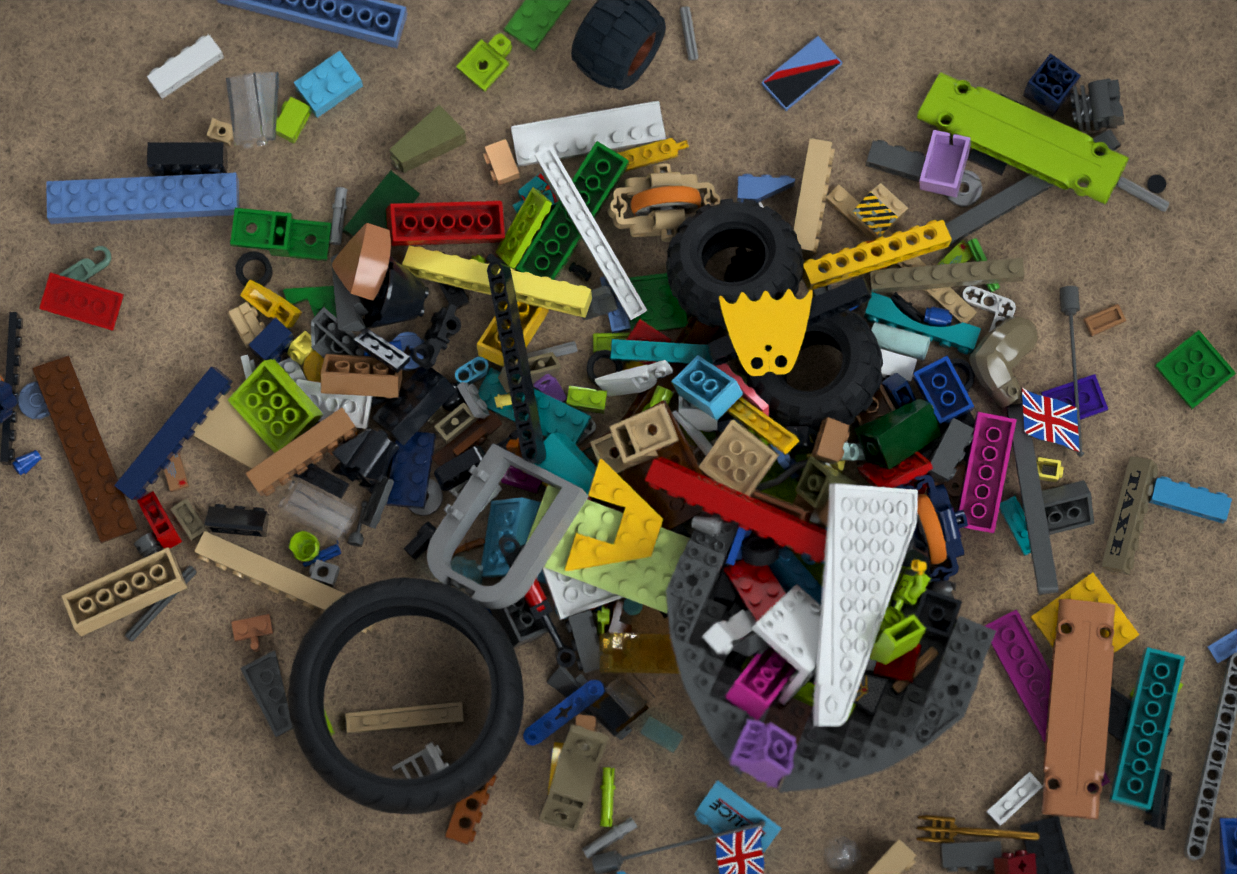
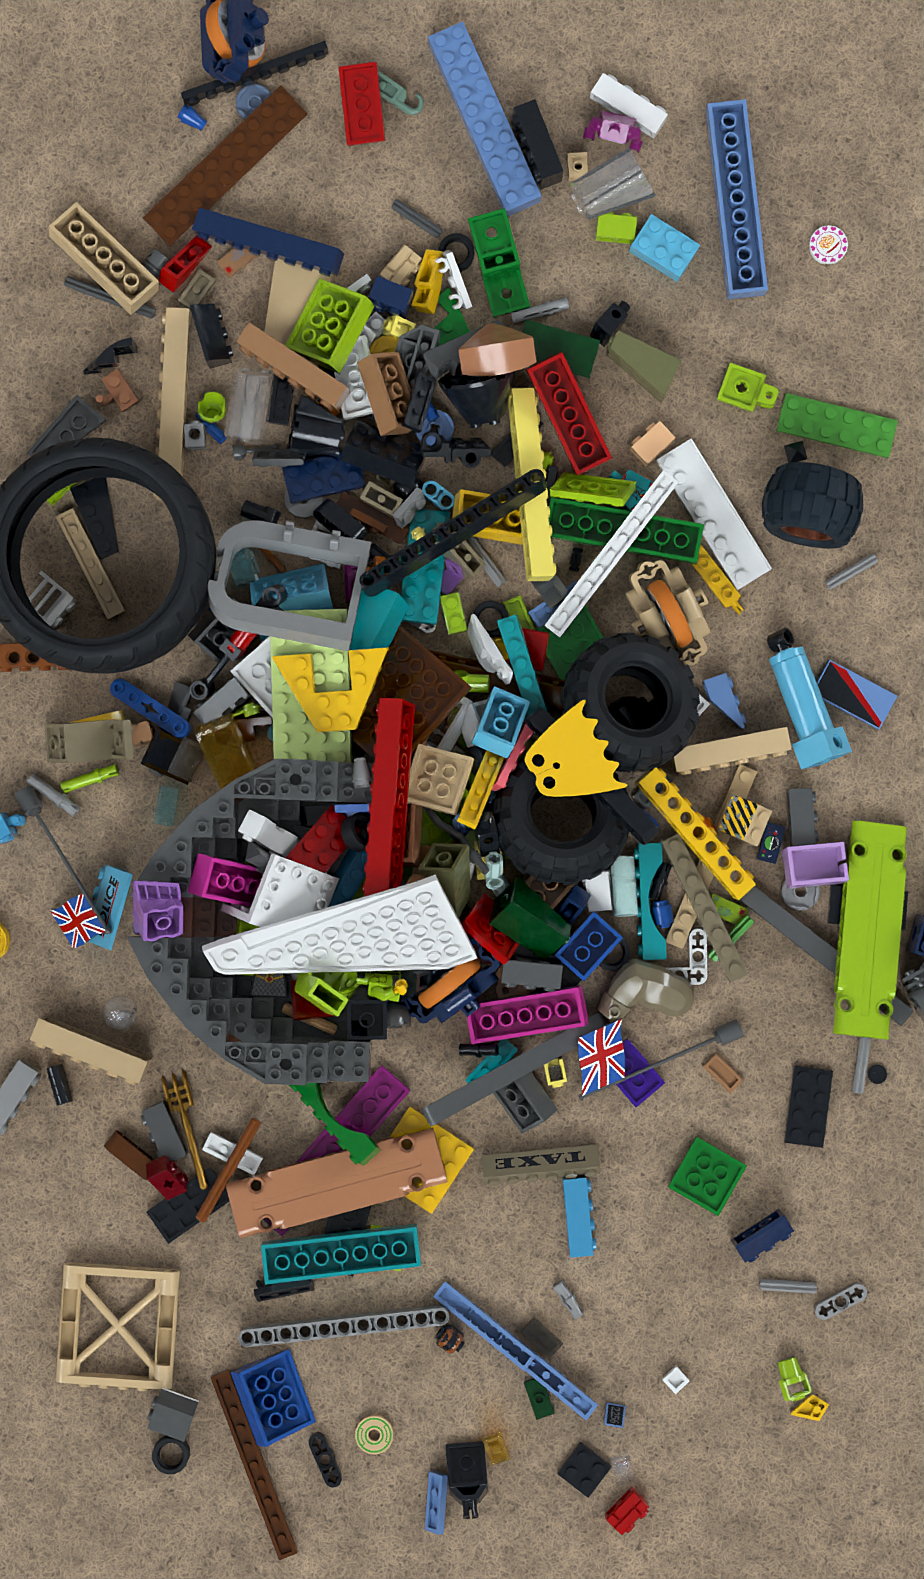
camera: 65 degrees right, 10 degrees up
(202, 85) = (615, 129): none -> magenta torso
(207, 294) = (416, 218): none -> dark grey axle
(220, 622) = (110, 356): none -> black slope
(280, 278) = (455, 280): none -> white plate
(355, 693) = (95, 508): none -> black wing
(376, 156) = (610, 322): none -> black torso
(560, 41) = (795, 452): none -> black slope
(634, 439) = (417, 674): tan bracket -> none
(793, 116) = (817, 736): none -> medium azure piece
(830, 441) = (490, 859): medium nougat brick -> none
(910, 197) = (771, 843): none -> tile
(1001, 531) = (478, 1050): none -> black pin
(1028, 805) = (228, 1170): none -> dark orange axle
(1049, 670) = (360, 1145): none -> green arch
(1164, 255) = (808, 1106): none -> black plate

